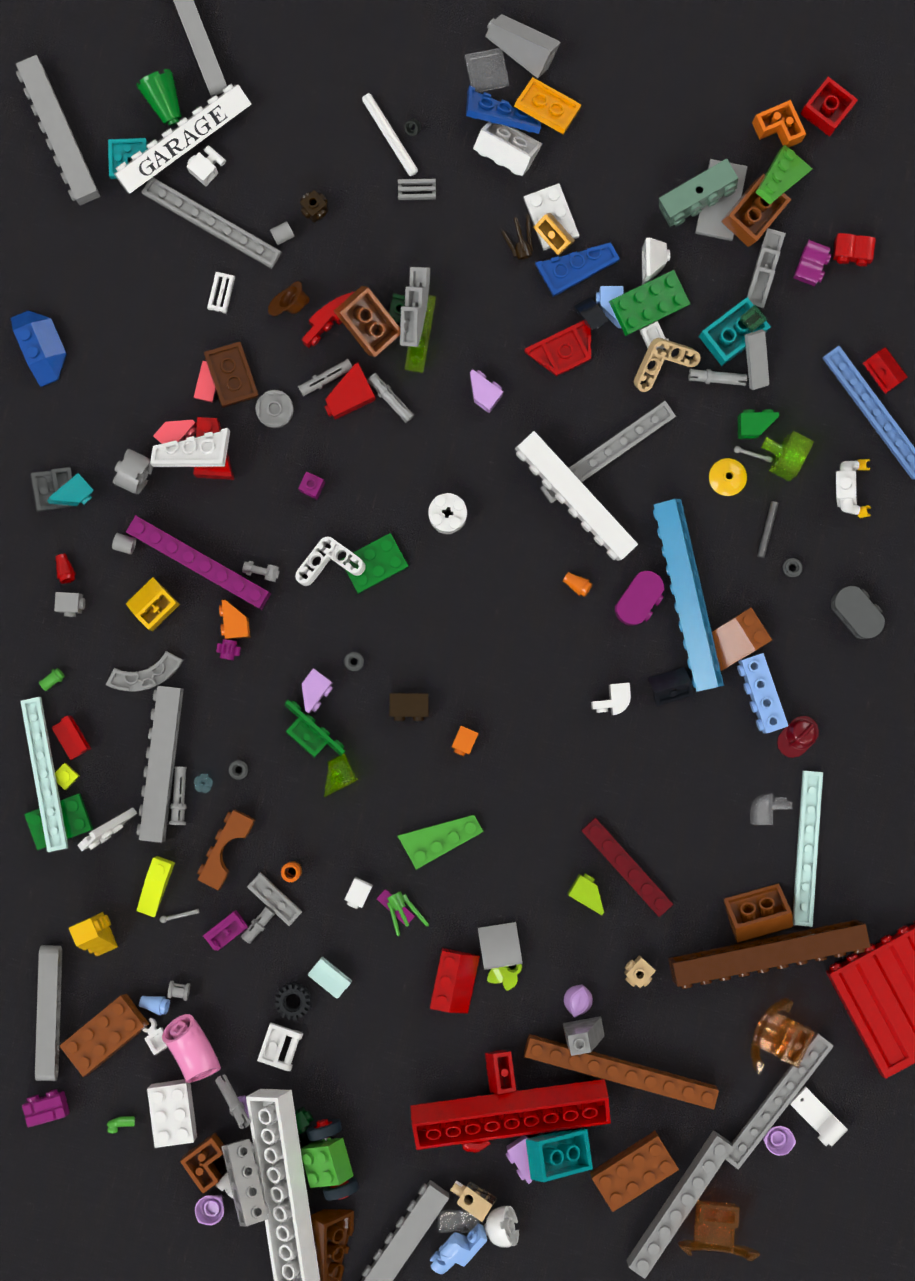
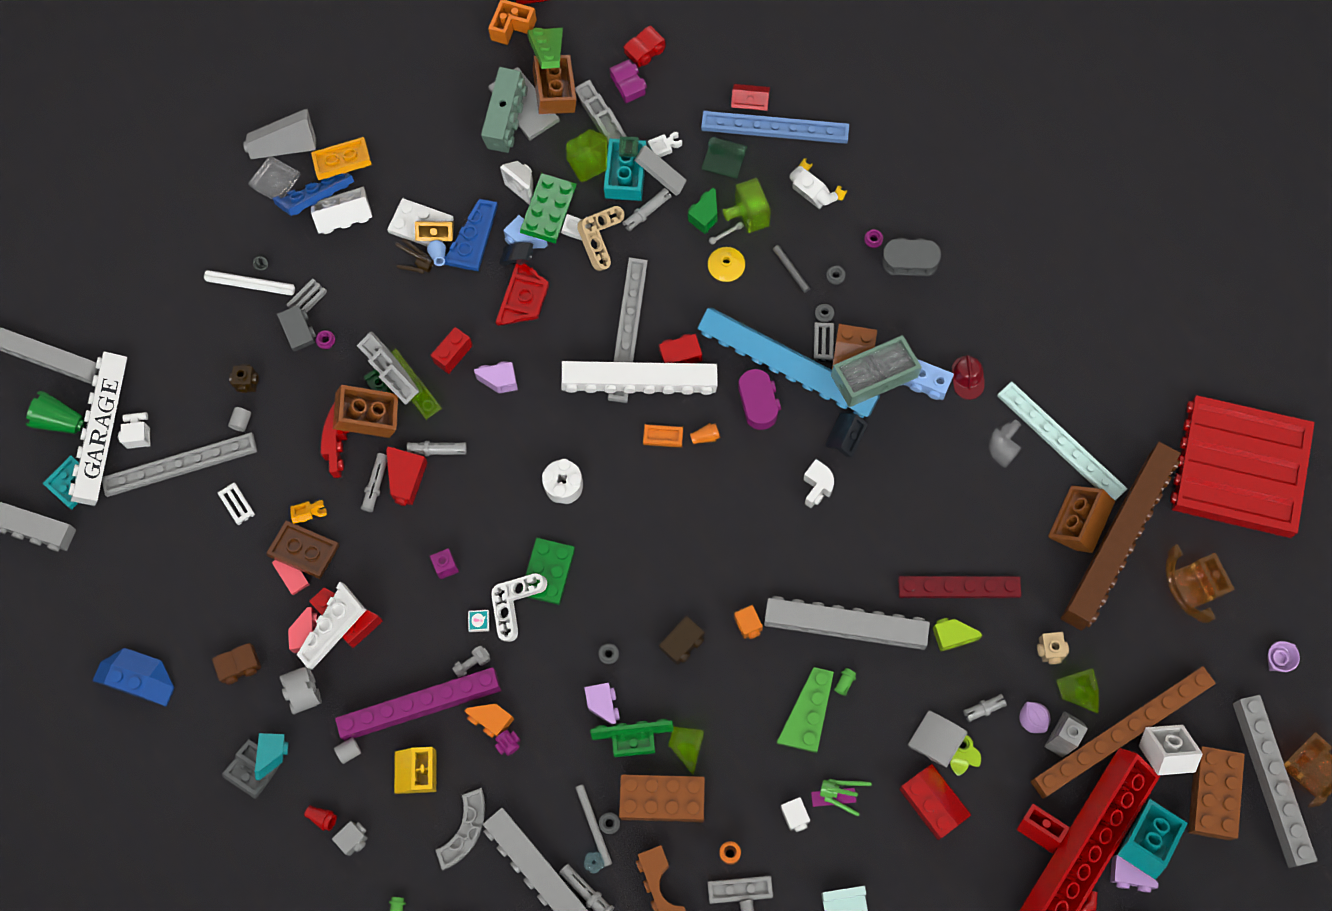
camera: 40 degrees left, 15 degrees down
(111, 407) = (236, 663): none -> reddish brown brick
(228, 759) = (593, 825): none -> light grey bar
(258, 347) = (304, 511): none -> light orange plate
(274, 409) = (360, 541): light grey tile -> none
(286, 791) = (662, 798): none -> dark orange brick
(289, 300) = (293, 457): reddish brown piece -> none
(294, 547) = (478, 621): none -> tile
(386, 206) = (296, 328): none -> dark grey brick
(398, 229) = (323, 335): none -> magenta plate
(473, 337) = (451, 350): none -> red brick
(483, 846) = (845, 681): none -> bright green pin
(526, 811) = (847, 623): none -> light grey brick
(539, 252) = (437, 252): none -> light blue cone
(549, 553) = (663, 435): none -> orange tile
(552, 959) = (984, 708): none -> light grey pin
(625, 507) = (681, 350): none -> red brick
(626, 1016) = (1081, 689): none -> clear neon green slope
(635, 1116) = (1170, 749): none -> white brick
(719, 292) = (587, 154): none -> clear neon green slope
(734, 670) = (875, 371): none -> brick
(742, 595) = (822, 356): none -> light grey tile
(747, 586) = (821, 317): none -> dark grey plate
(777, 1101) = (1249, 633): light grey plate -> none
(780, 340) = (662, 146): none -> white plate
(814, 396) = (724, 157): none -> clear green hinge
(818, 1117) = (1280, 612): white door -> none
(854, 570) = (873, 234): none -> magenta plate

